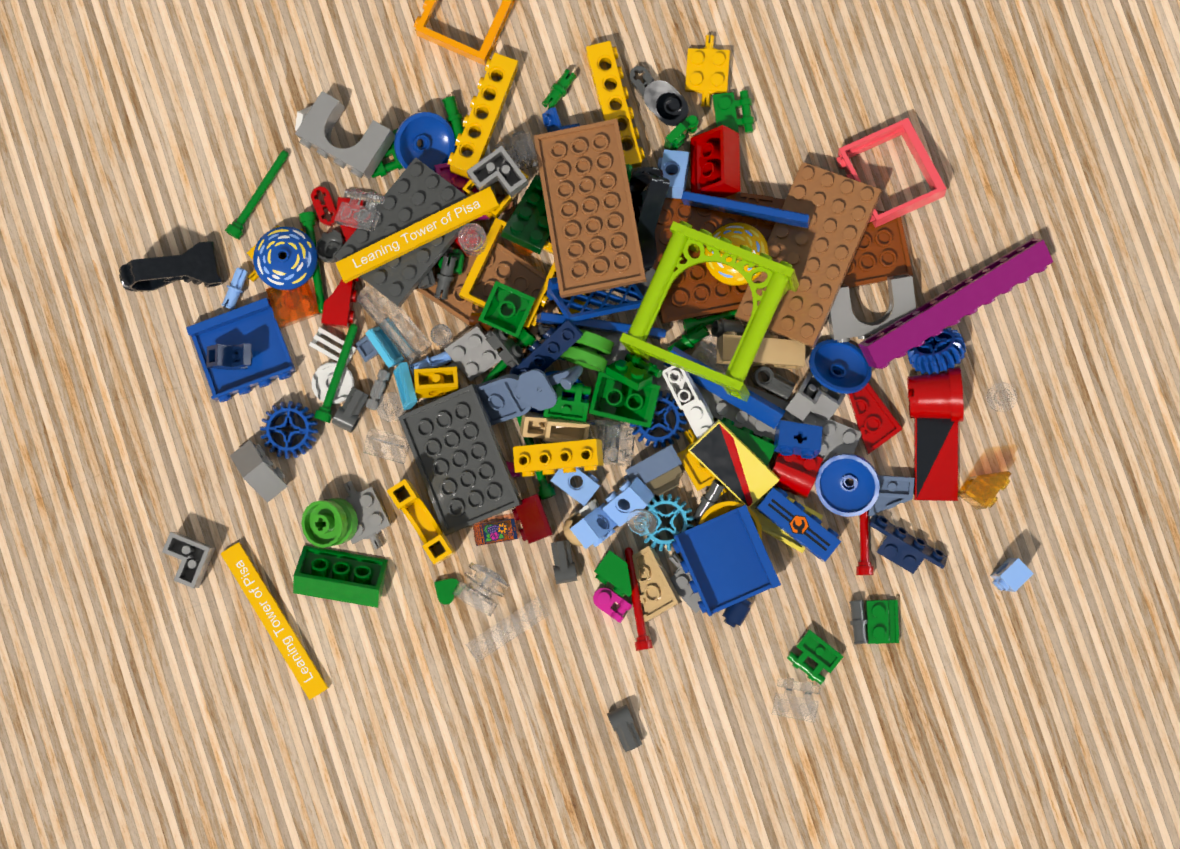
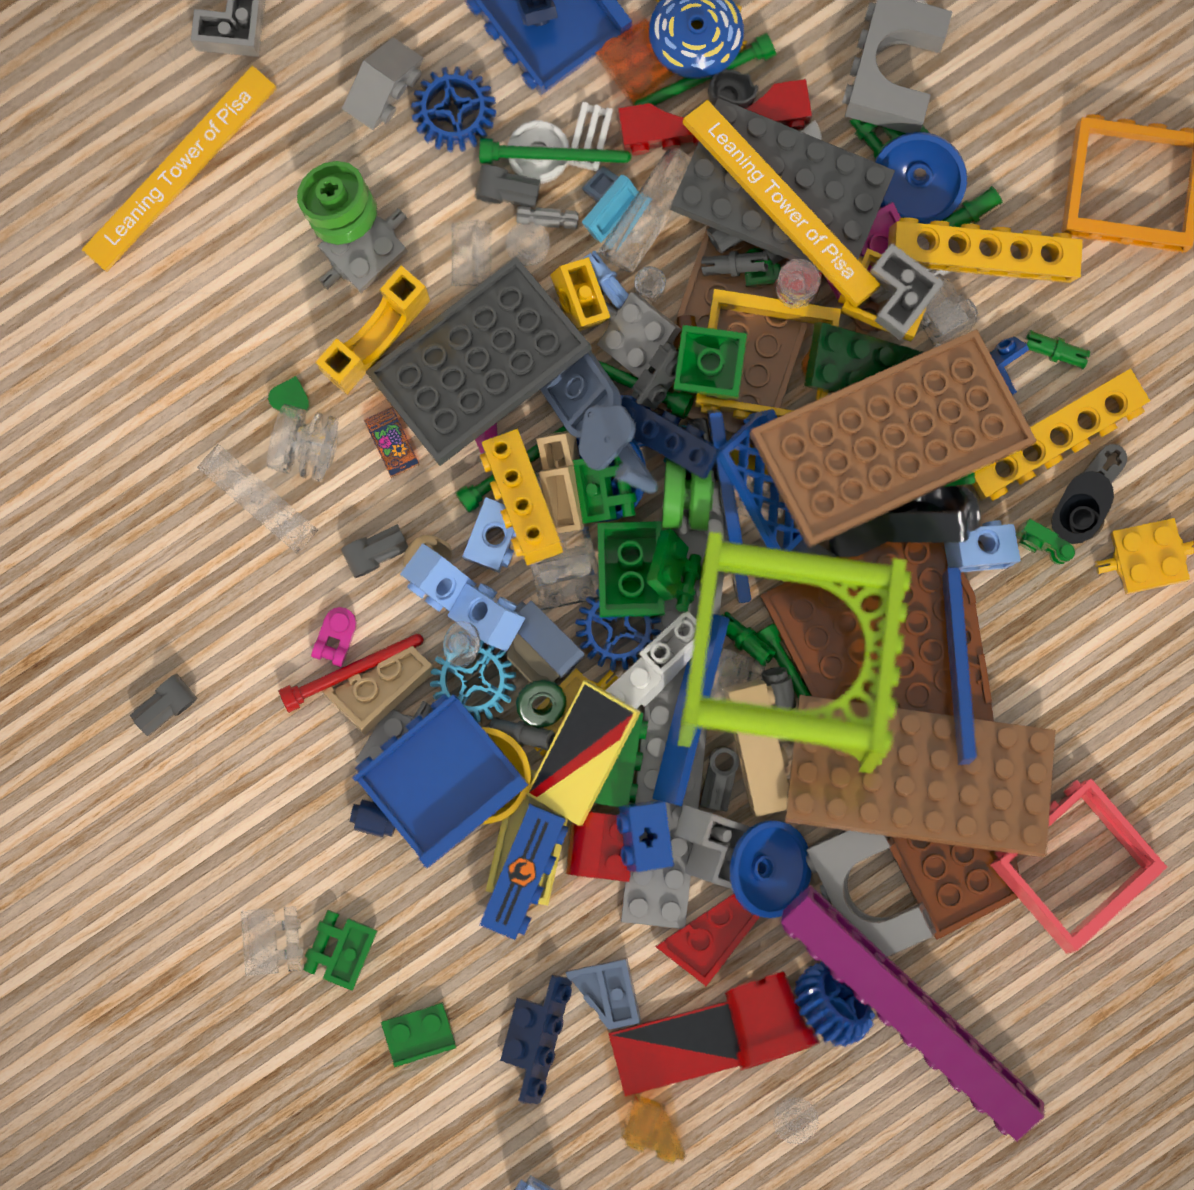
camera: 75 degrees right, 0 degrees up
(329, 204) = (783, 60): red beam -> none
(340, 576) = (266, 241): green slope -> none
(359, 216) = (785, 114): clear plate -> none
(405, 386) = (562, 253): medium azure tile -> none
(533, 519) = (423, 489): dark red slope -> none
(589, 508) = (463, 564): white tile -> none
(615, 571) = (379, 627): green slope -> none
(701, 478) = (541, 717): none -> dark green piece
(716, 162) = (1016, 605): red slope -> none
(725, 111) = (1094, 601): green plate -> none
(739, 235) = (917, 675): yellow dish -> none
(841, 496) = (584, 922): blue dish -> none
(858, 622) = (407, 1000): dark grey pin -> none
(864, 566) = (490, 986): red piece -> none

